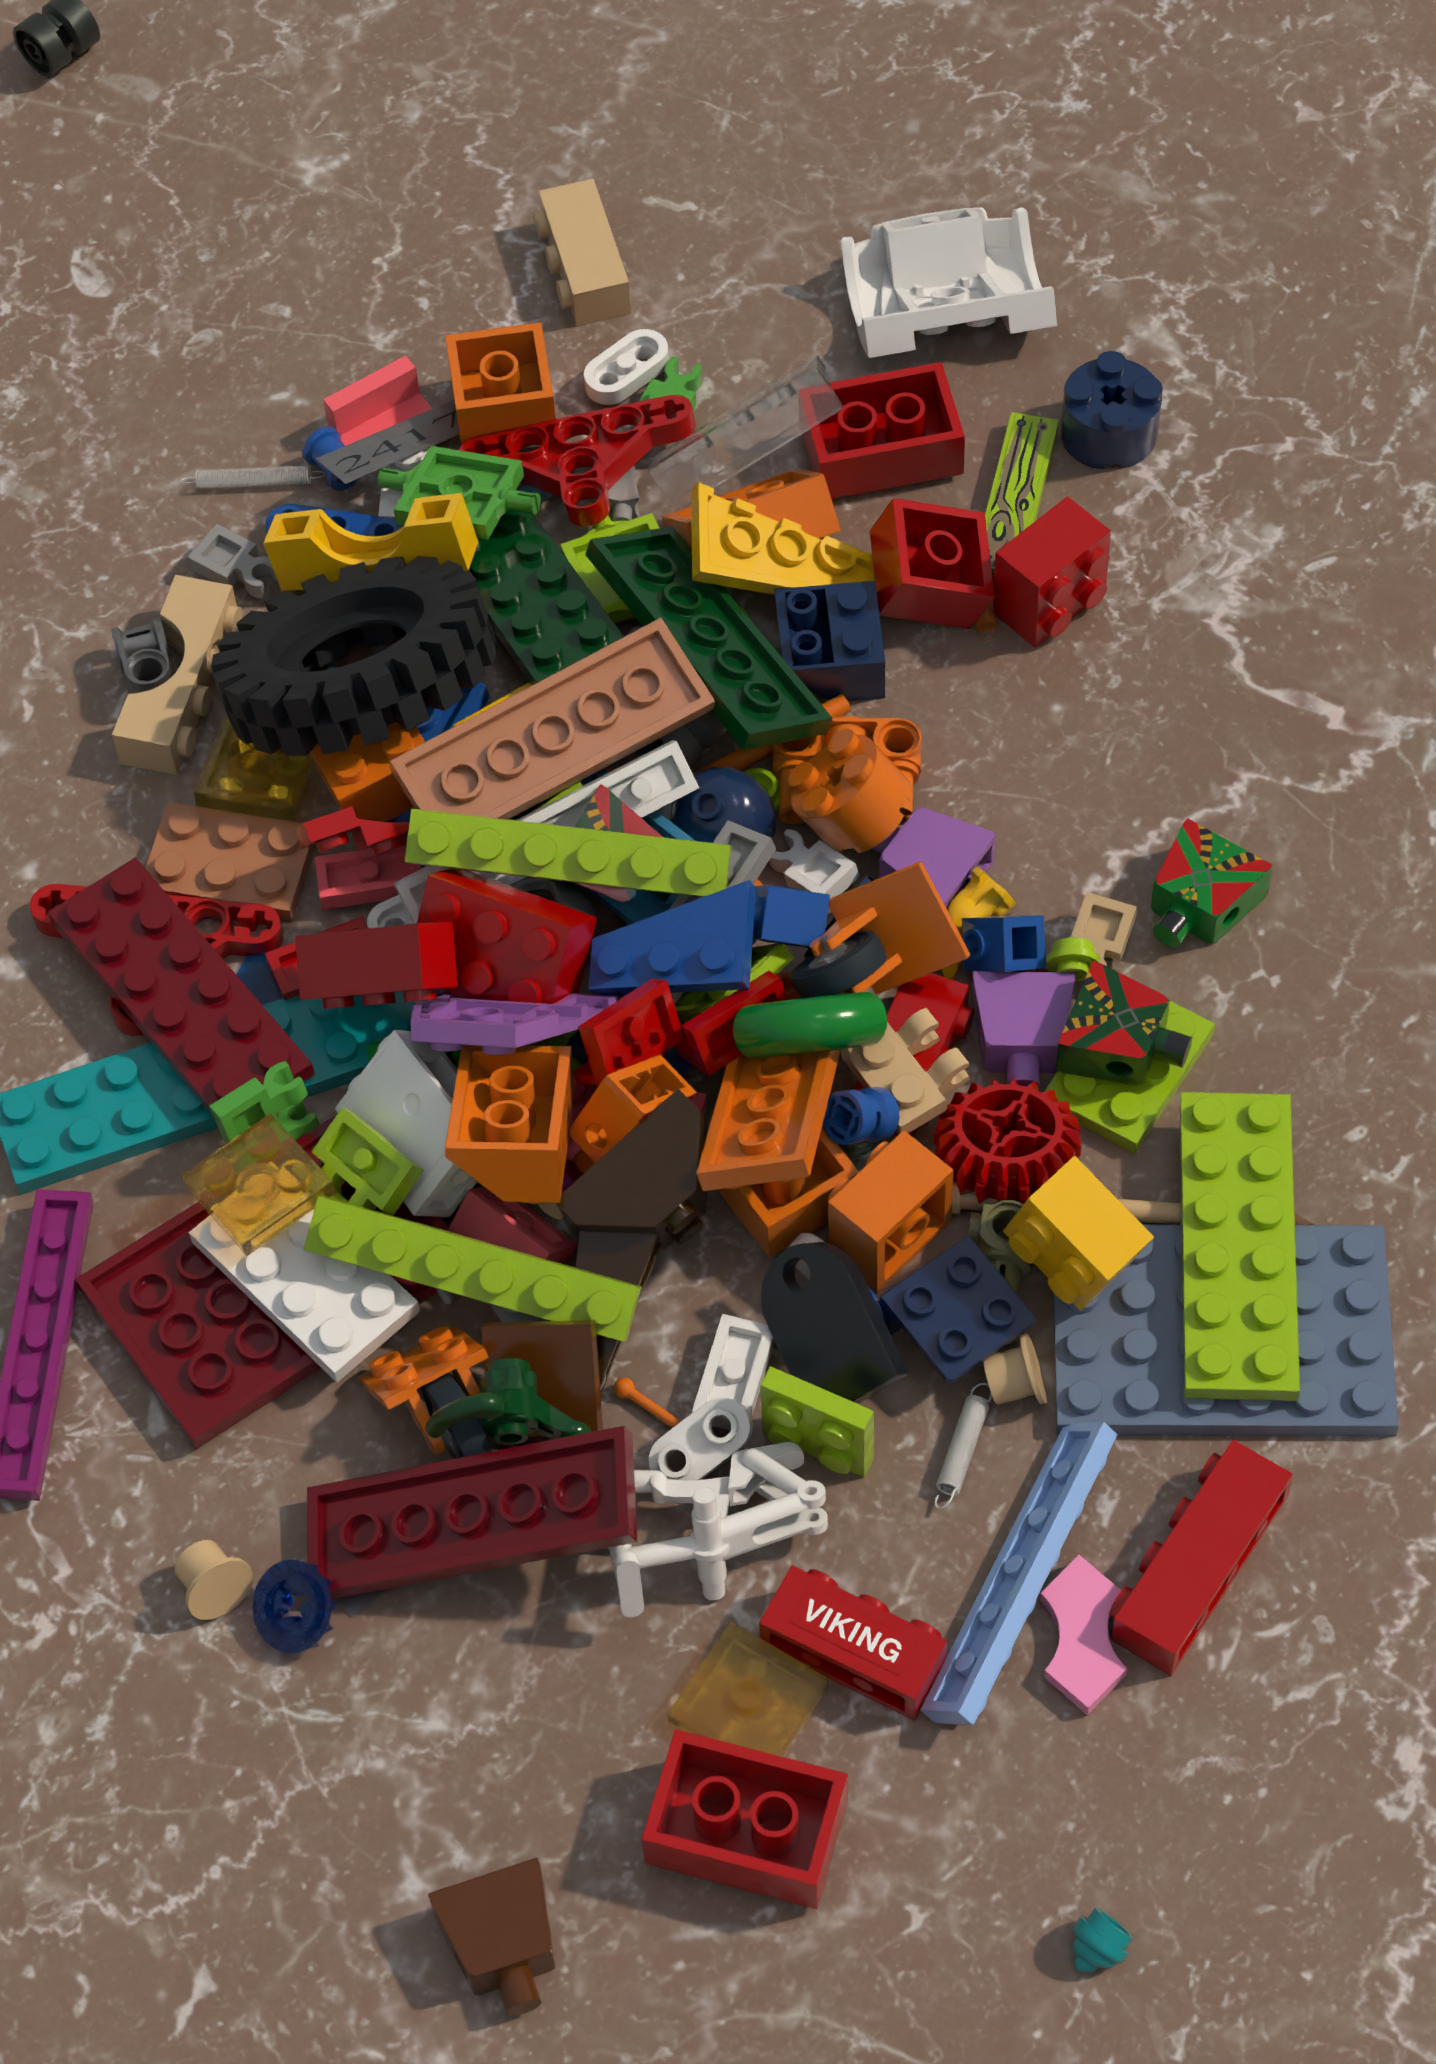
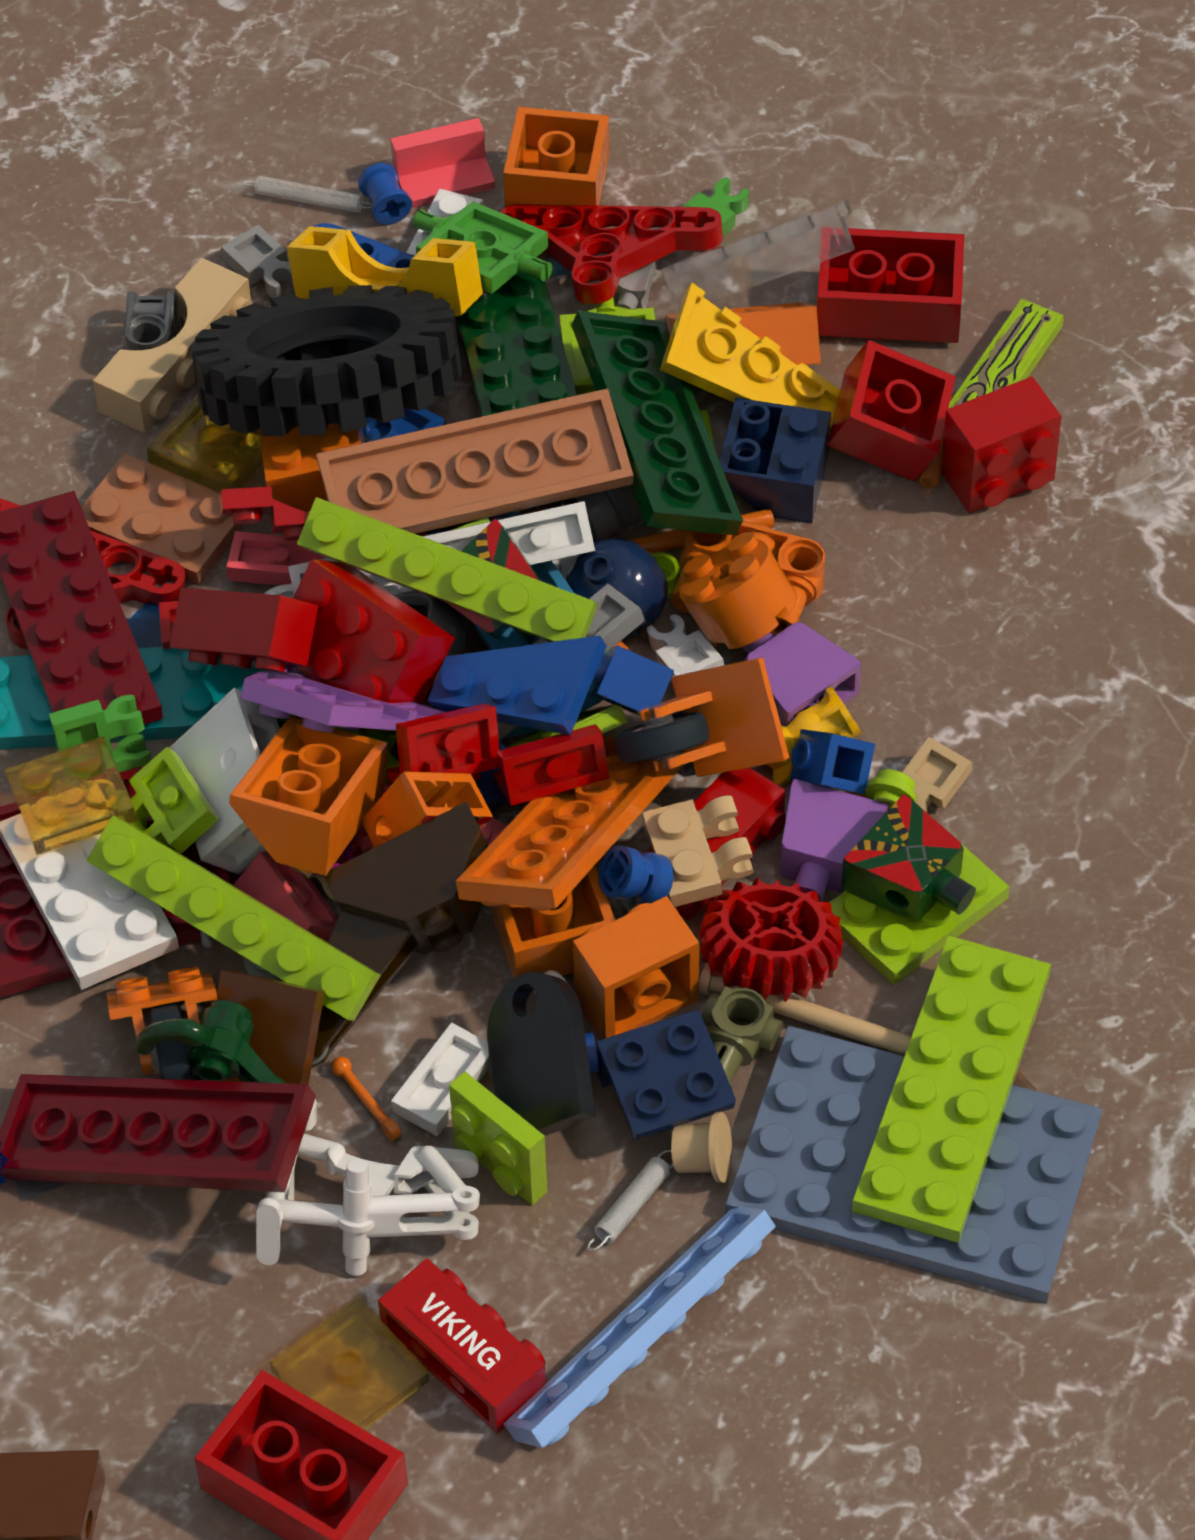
camera: 15 degrees right, 5 degrees down
(392, 443) = (436, 192): flat silver sticker -> none
(582, 252) = (676, 68): tan brick -> none
(620, 372) = (679, 176): white plate -> none
(698, 1442) = (385, 1128): white plate -> none
(810, 1025) = (614, 780): green cylinder -> none
(943, 273) = (1000, 160): white piece -> none
(1076, 1234) = (793, 1031): yellow brick -> none
(1084, 1662) = (689, 1375): bright pink tile -> none
(1111, 412) = (1113, 319): dark blue brick -> none
(1200, 1556) = (814, 1358): red brick -> none
(1206, 886) = (1045, 761): green torso -> none

